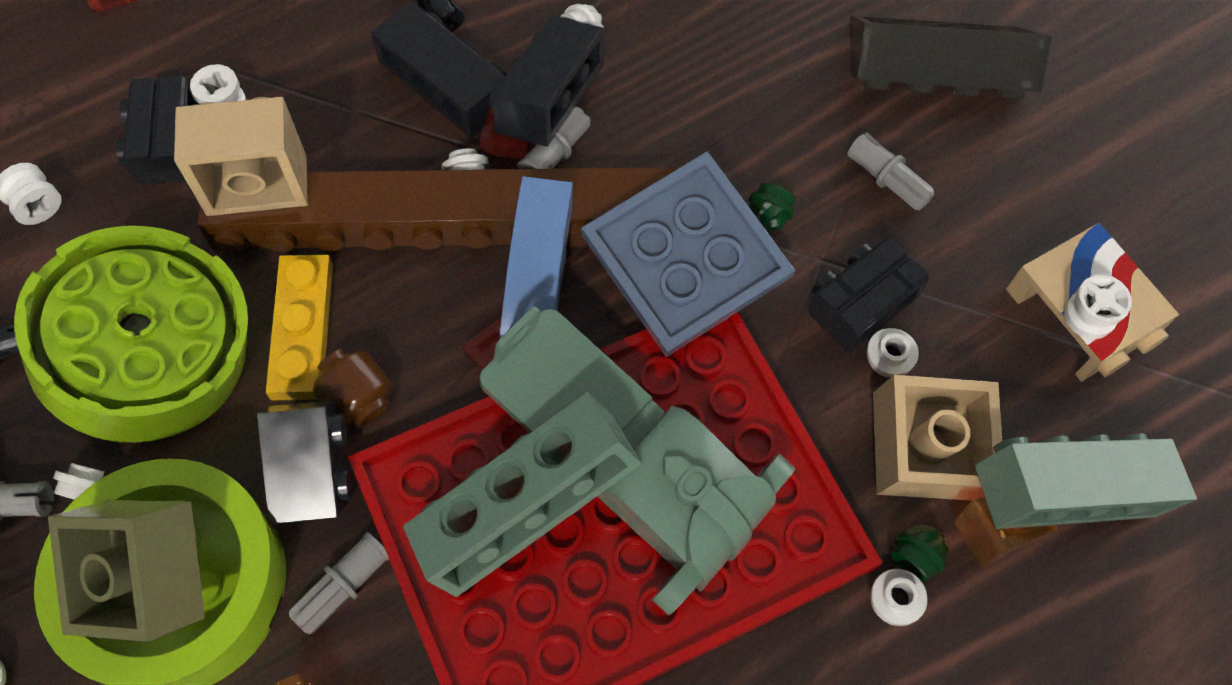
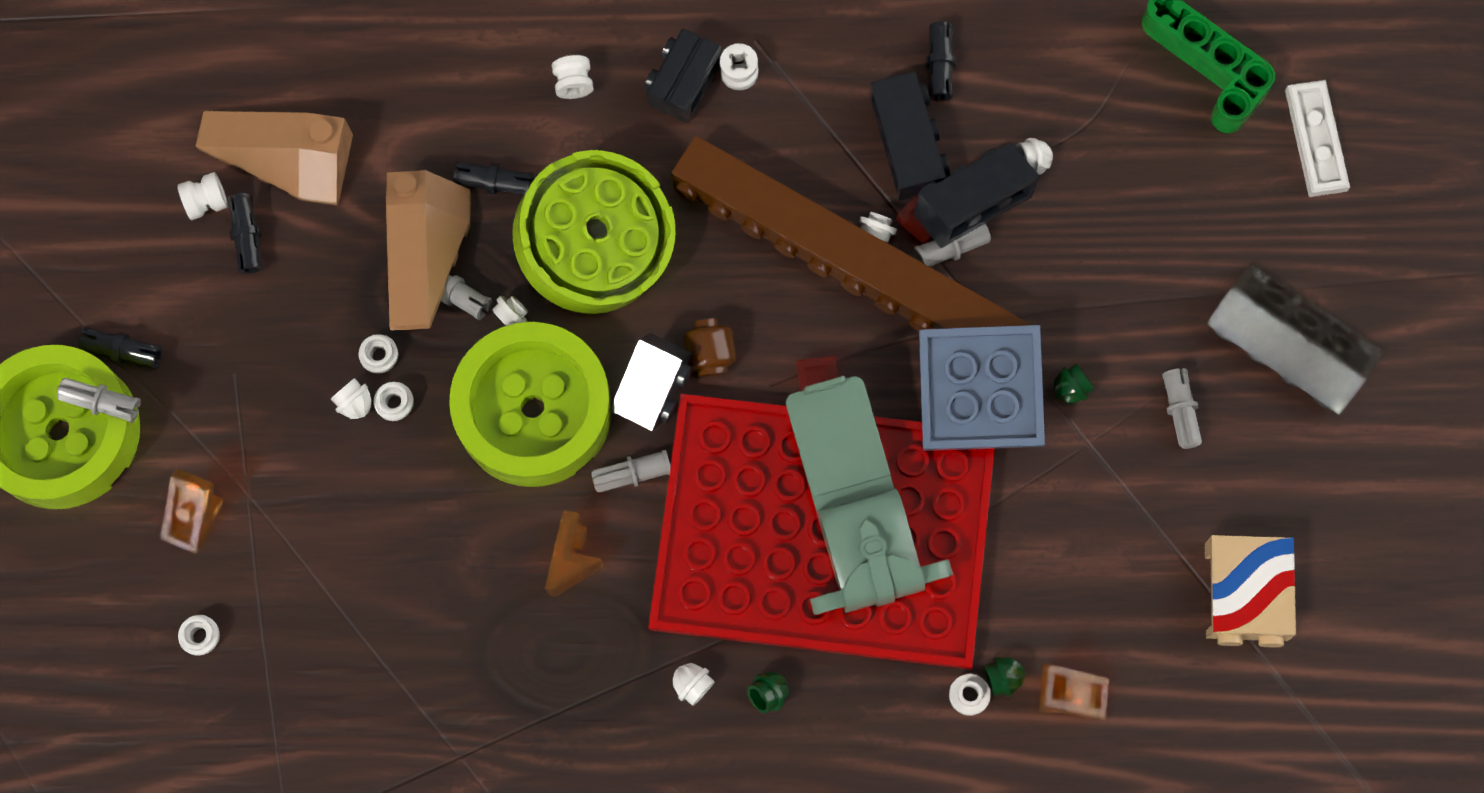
camera: 40 degrees right, 10 degrees up
(126, 569) = (516, 393): olive brick -> none
(241, 155) = (724, 149): tan brick -> none
(299, 326) = (700, 280): yellow plate -> none
(460, 555) = (825, 495): sand green brick -> none
(537, 248) = (880, 329): medium blue slope -> none
(866, 293) = (1095, 487): black brick -> none
(887, 364) = (1080, 550): white plate -> none
(934, 435) = (1064, 613): tan brick -> none
(1082, 480) = (1134, 698): sand green brick -> none
(1096, 294) = (1241, 591): white wheel -> none

